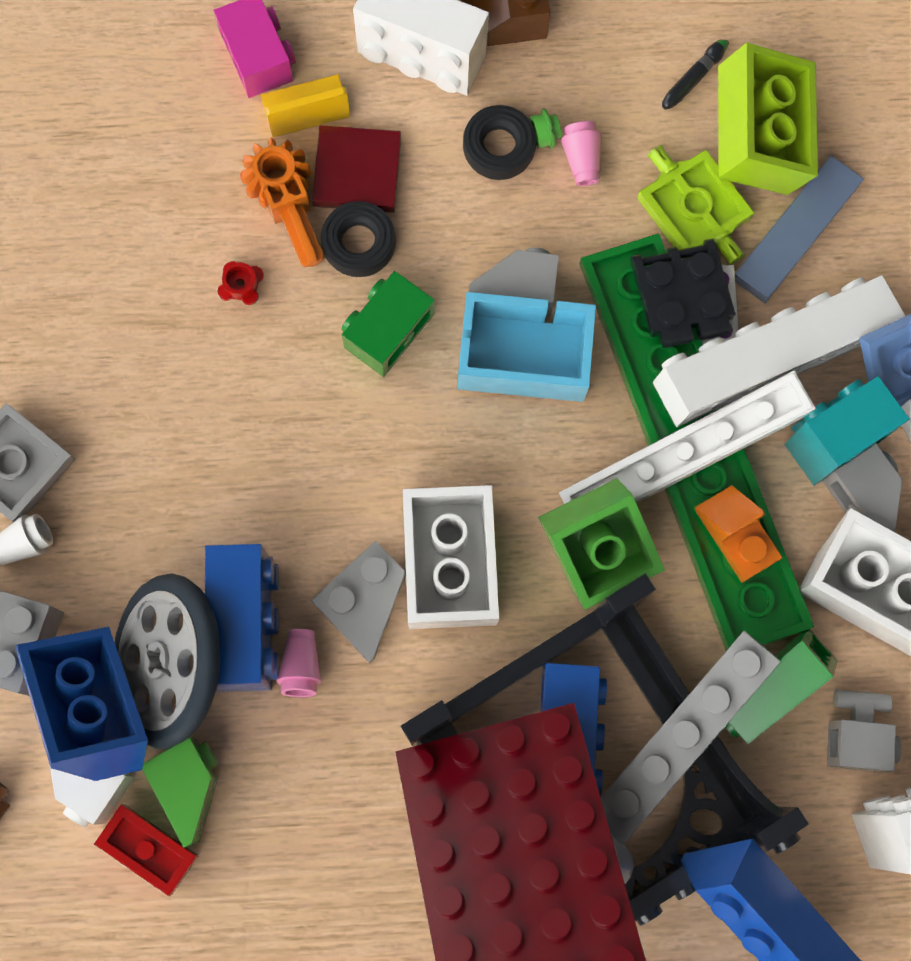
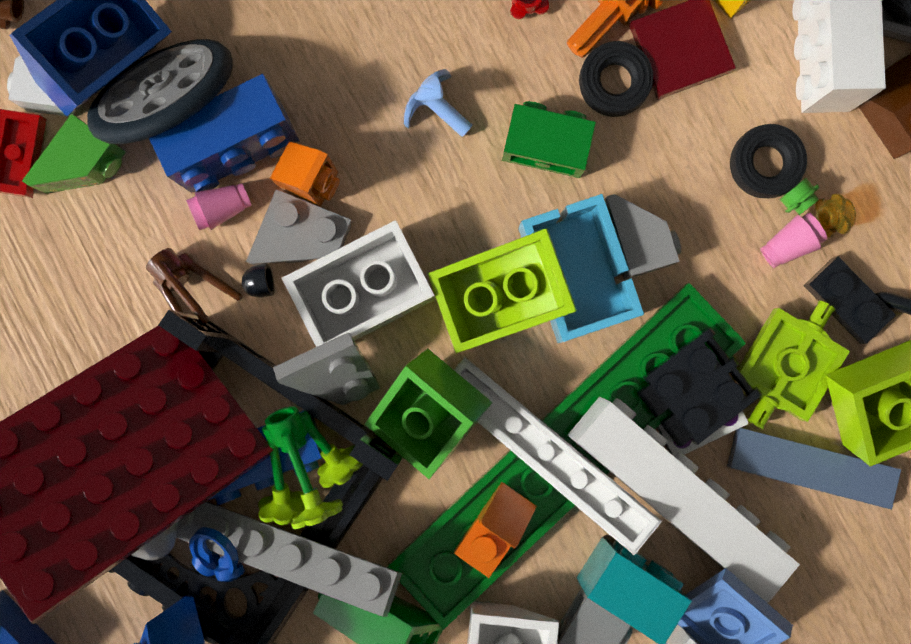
camera: 70 degrees right, 10 degrees up
(294, 405) = (431, 95): none -> light blue plant
(312, 559) = (306, 173): none -> orange slope
(344, 741) = (171, 274): none -> reddish brown plant
(394, 659) = (258, 281): none -> black hinge
(517, 420) = (502, 291): none -> lime slope
(520, 618) = (330, 372): none -> light grey wing
(562, 677) = (287, 431): none -> plant
(576, 106) = (835, 214): none -> clear yellow plate
(654, 830) = (210, 563): none -> blue piece
(665, 126) = (854, 302): none -> black plate

